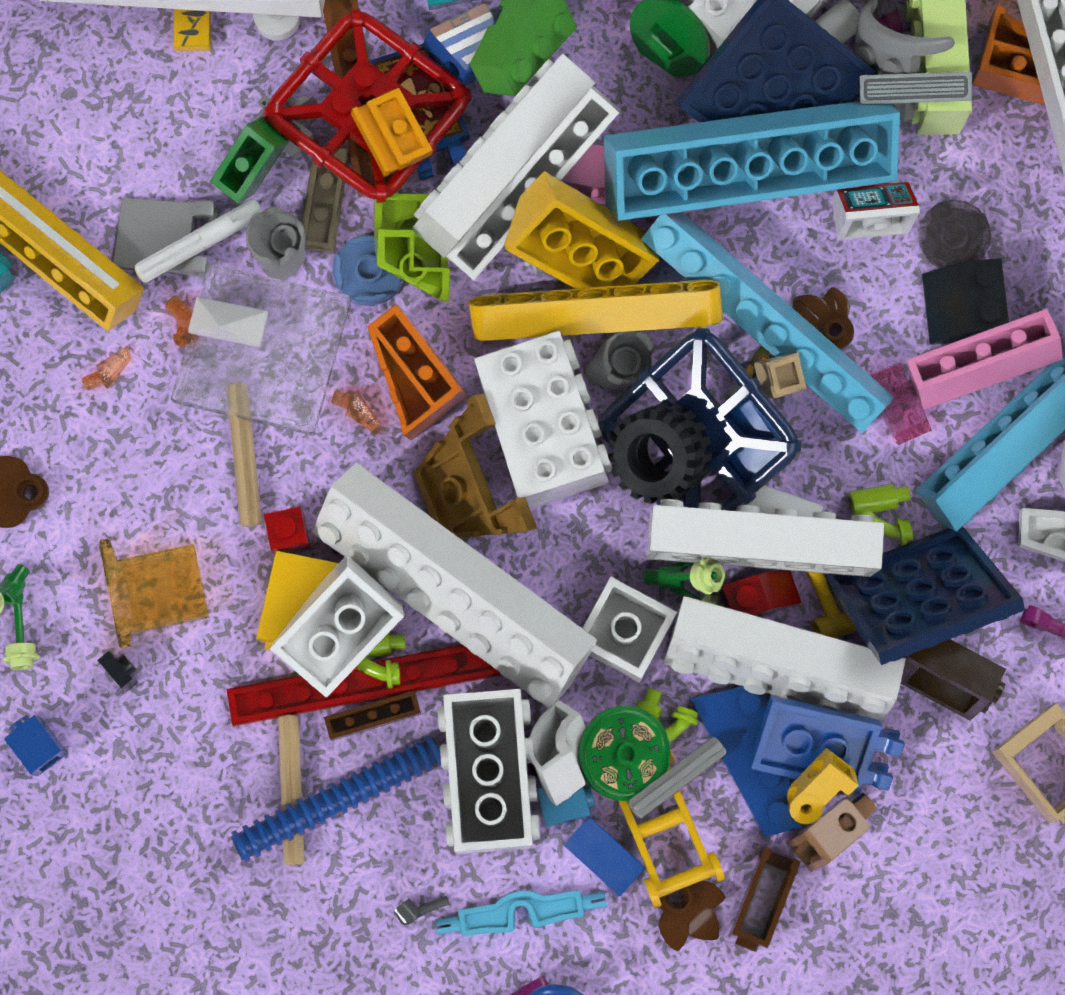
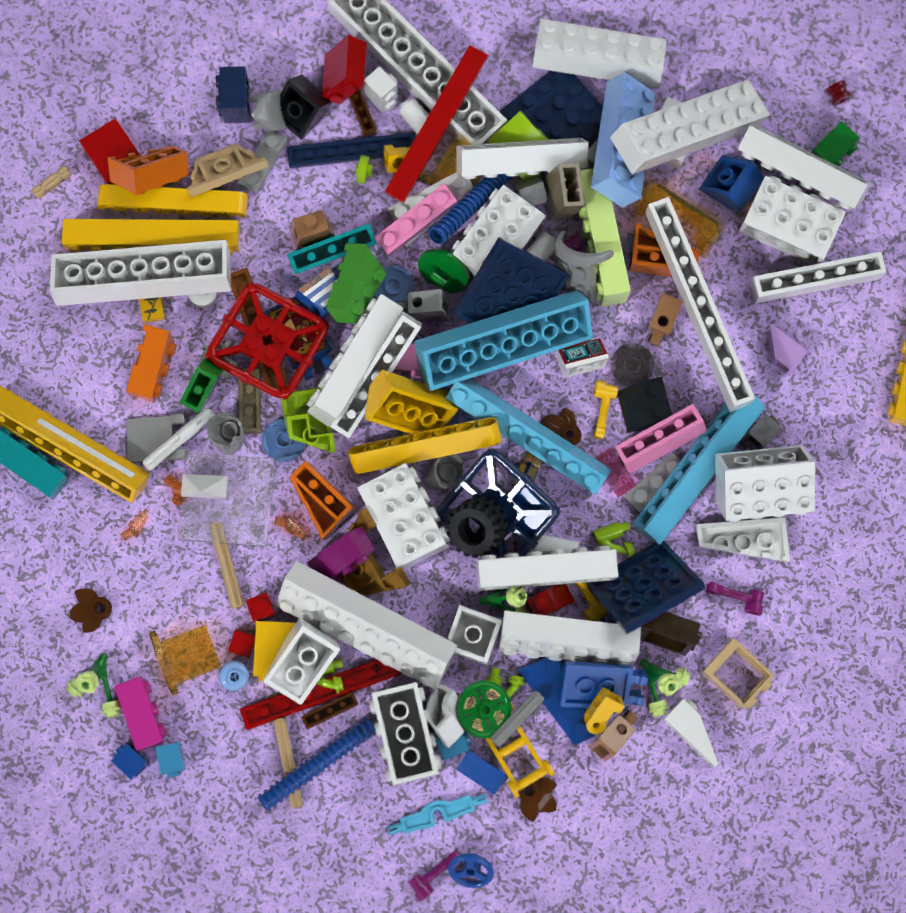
camera: 15 degrees left, 0 degrees up
(65, 670) = (140, 713): none -> dark pink brick
(101, 752) = (170, 759): none -> dark azure brick
(119, 669) = (173, 707): black plate -> none
(176, 114) = (151, 364): none -> orange wedge
(233, 621) = (237, 668): none -> light blue head
(247, 585) = (242, 644): none -> red tile
(391, 132) = (285, 356): light orange plate -> none
(408, 913) = (369, 825): dark grey hand -> none
(434, 464) = (343, 555): none -> magenta brick
(595, 57) = (397, 289): none -> medium blue tile
(635, 87) = (432, 305): none -> light grey torso
(764, 900) = (580, 782): window -> none
(780, 375) = (541, 468): tan slope -> none
(904, 274) = (606, 393): none -> yellow brick
(916, 88) = (595, 283): sticker -> none
(935, 759) = (668, 683): none -> yellowish green plant
(946, 439) = (646, 489): none -> light grey plate
(962, 841) = (690, 727): none -> white slope
(1024, 155) = (666, 309): none -> medium nougat torso

